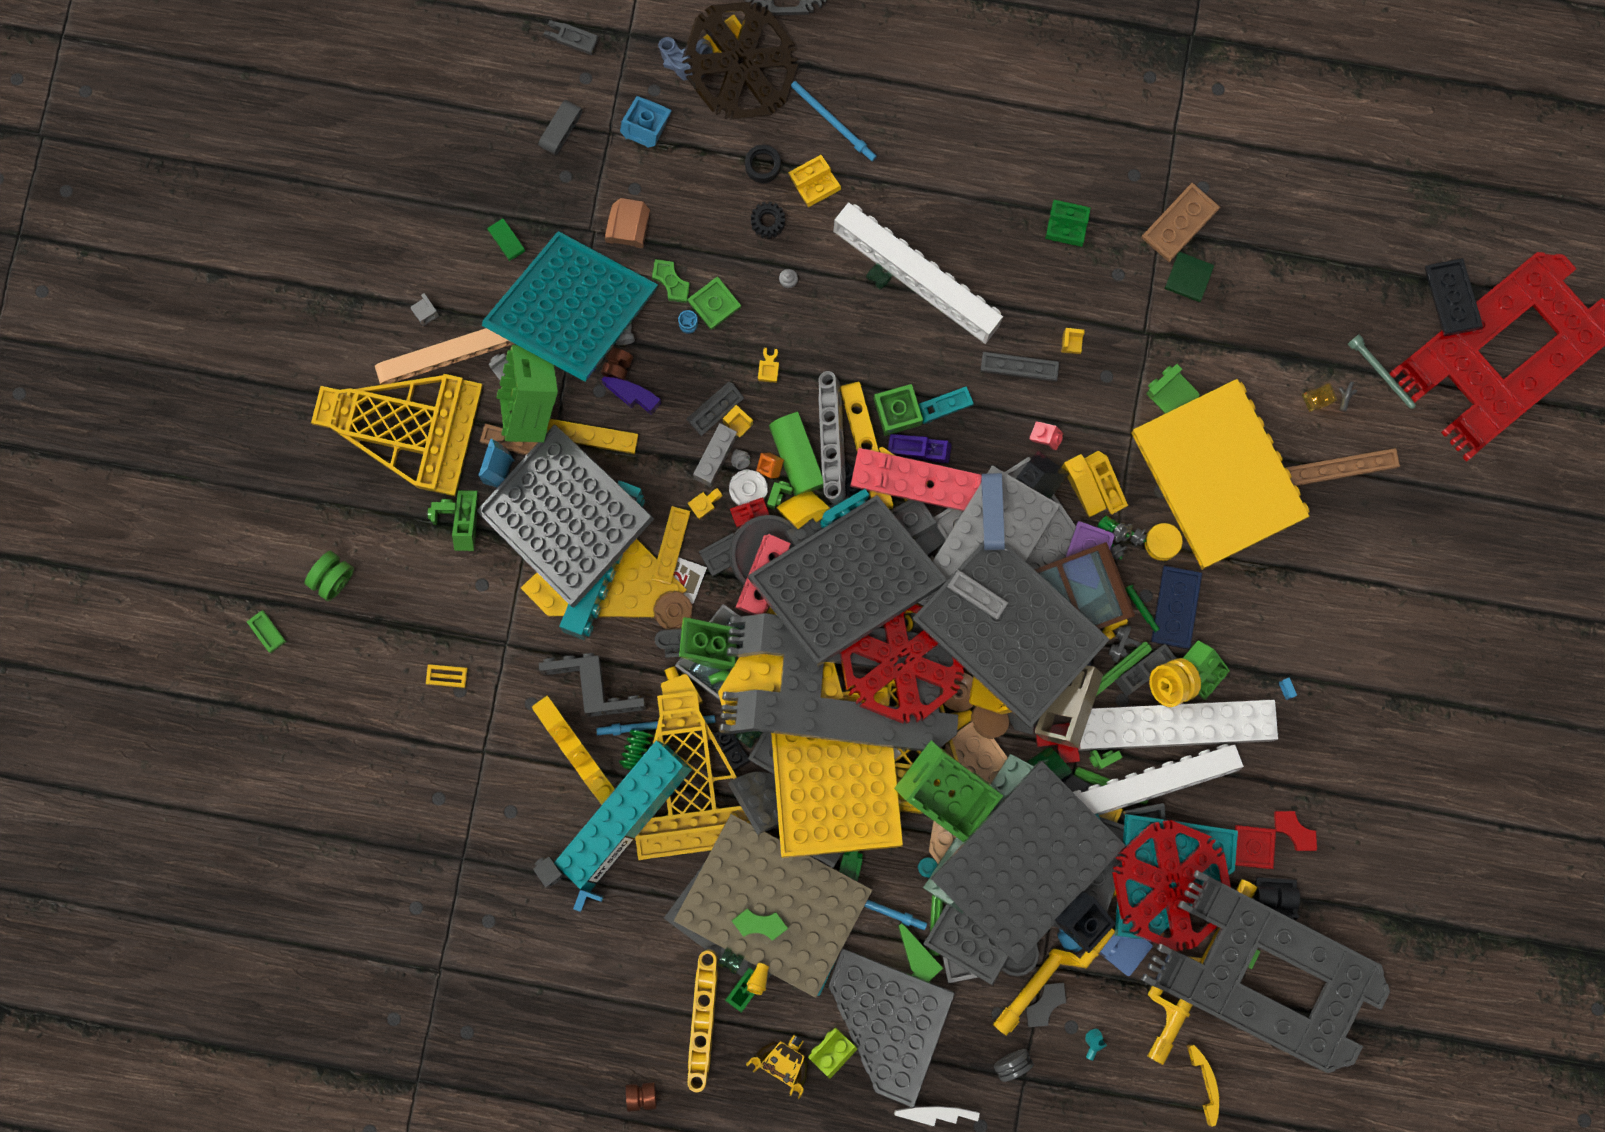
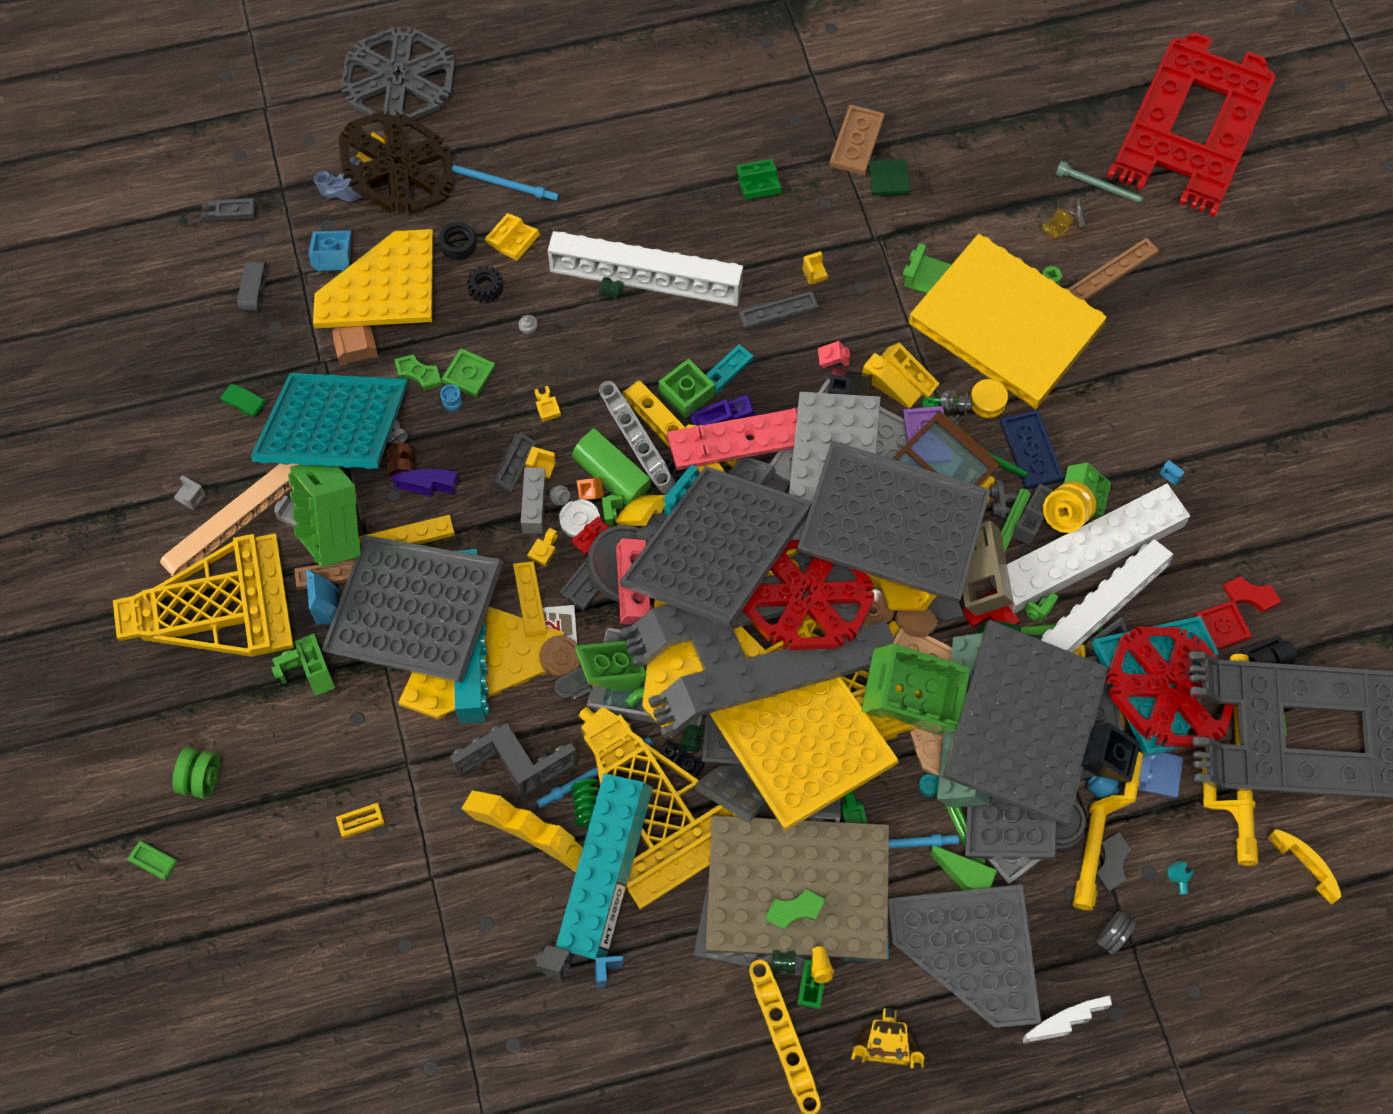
camera: 20 degrees left, 15 degrees down
(675, 181) = (382, 286): none -> yellow plate
(832, 1052) = (931, 1008): lime bracket -> none
(977, 594) = (847, 500): light grey tile -> none
(993, 511) = (815, 407): sand blue beam -> none
(1289, 445) = (1054, 272): none -> bright green wheel
(1453, 297) = (1124, 100): black tile -> none

